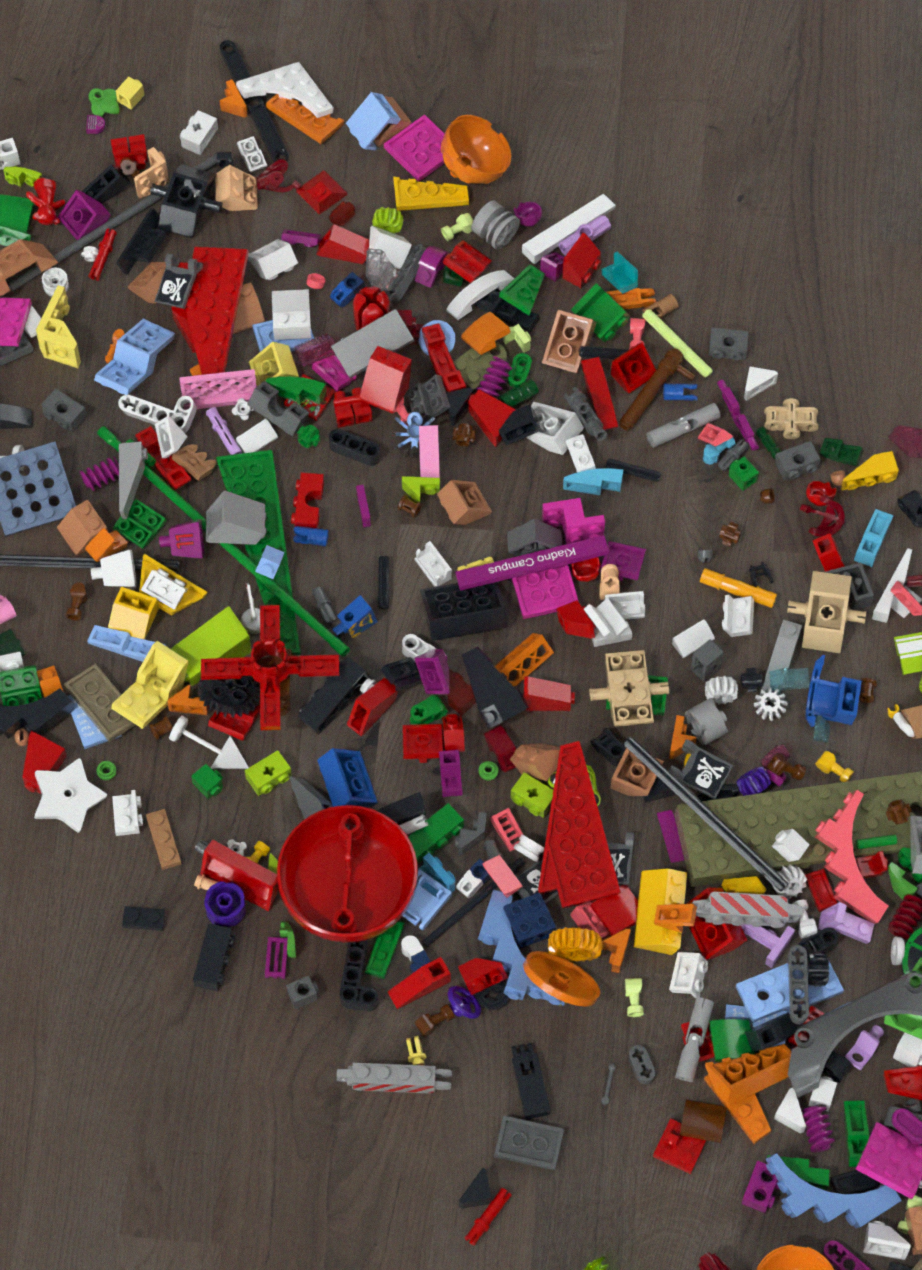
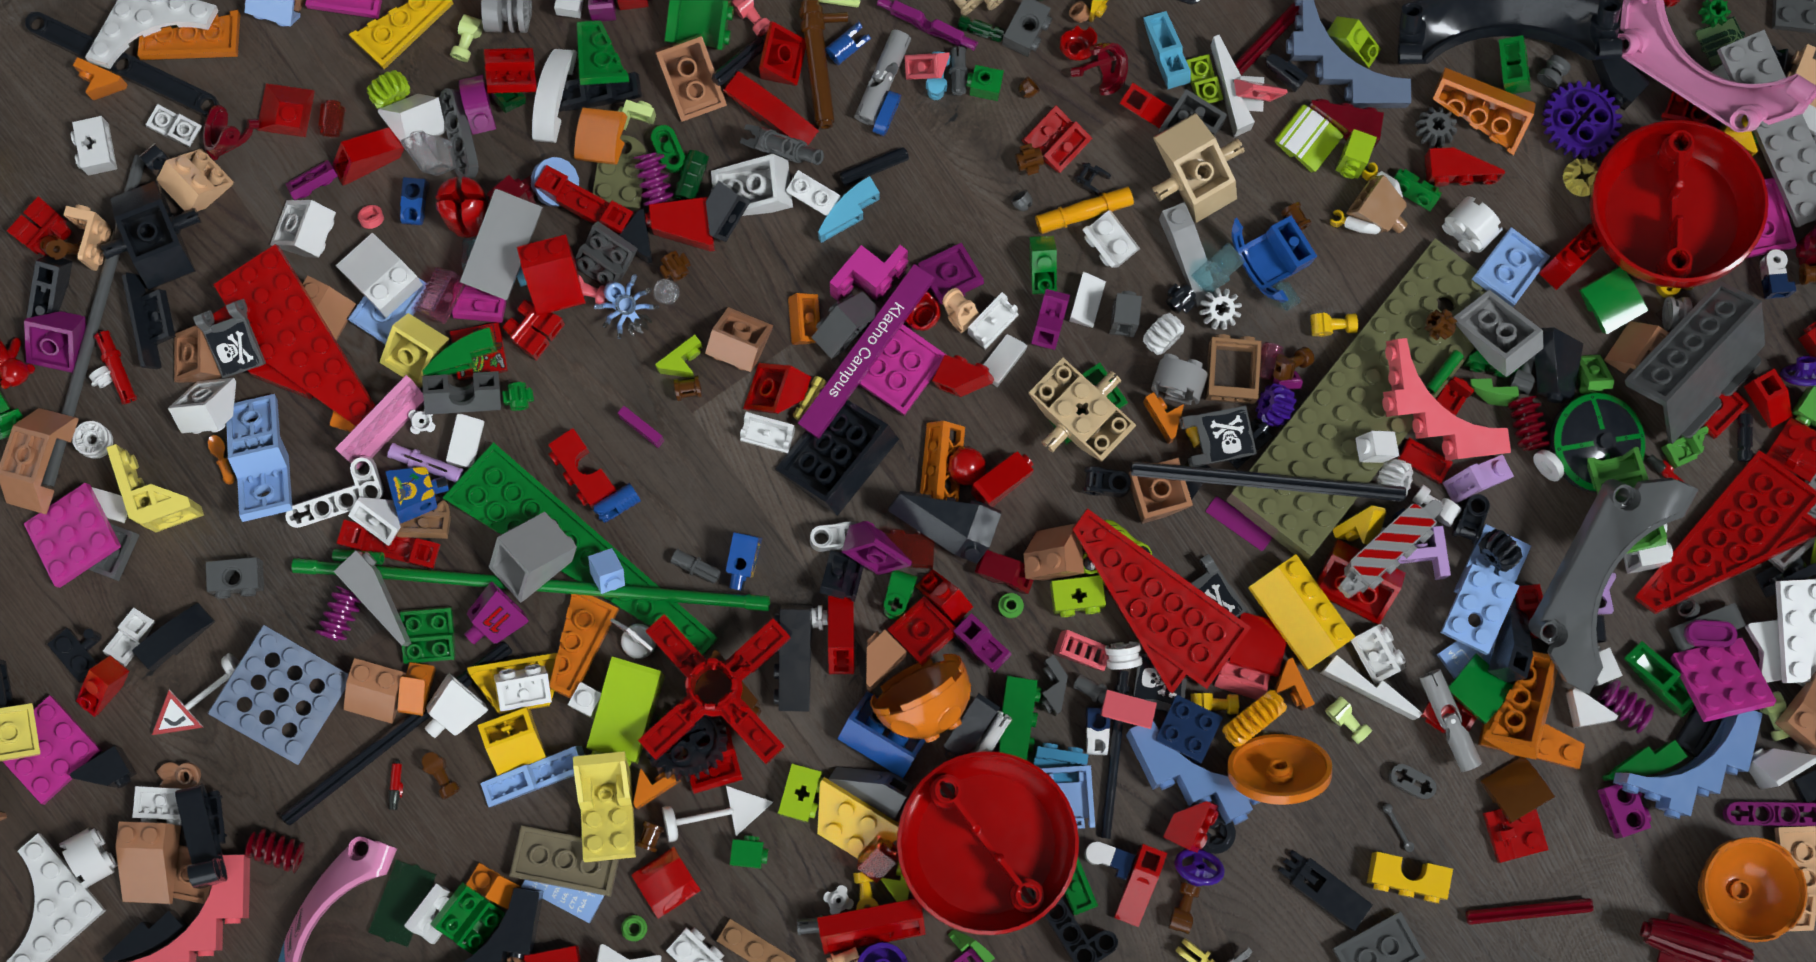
camera: 45 degrees left, 15 degrees up
(47, 589) = (396, 785): none -> piece
(130, 309) = (205, 406): none -> white slope
(146, 761) = (666, 883): none -> red slope
(192, 622) = (585, 700): none -> white brick
(202, 441) = (414, 492): none -> torso
(220, 593) = (581, 638): none -> orange wing
(275, 839) = (877, 858): none -> clear red brick
(281, 809) = (850, 821): none -> yellow wing
(349, 440) = (563, 367): black beam -> none
(381, 735) = (882, 657): none -> nougat slope
(383, 583) = (732, 491): black axle -> none
(385, 774) = (924, 699): none -> orange rock
(429, 451) = (660, 315): bright pink tile -> none
(446, 445) = (666, 291): none -> clear tile
(463, 544) = (776, 388): none -> red slope
(516, 517) = (804, 317): none -> orange slope
(533, 668) = (966, 465): none -> red hair
(557, 916) = (1207, 701): none -> yellow leg
(598, 1129) = (1432, 882): none -> yellow arch
(607, 619) = (994, 351): white panel -> none
(646, 1198) = (1529, 911): none -> dark red axle
(661, 631) = (1050, 319): none -> magenta brick
(667, 446) = (887, 113): none -> blue beam
(667, 995) = (1382, 693): none -> white slope
(675, 916) = (1333, 612): orange slope -> none
(684, 598) = (1043, 264): none -> green slope
(733, 757) = (1233, 394): none -> medium nougat window
(759, 537) = (1057, 139): none -> red slope
(795, 984) = (1499, 587): dark grey beam -> none
(882, 571) = (1203, 79): none -> lime slope

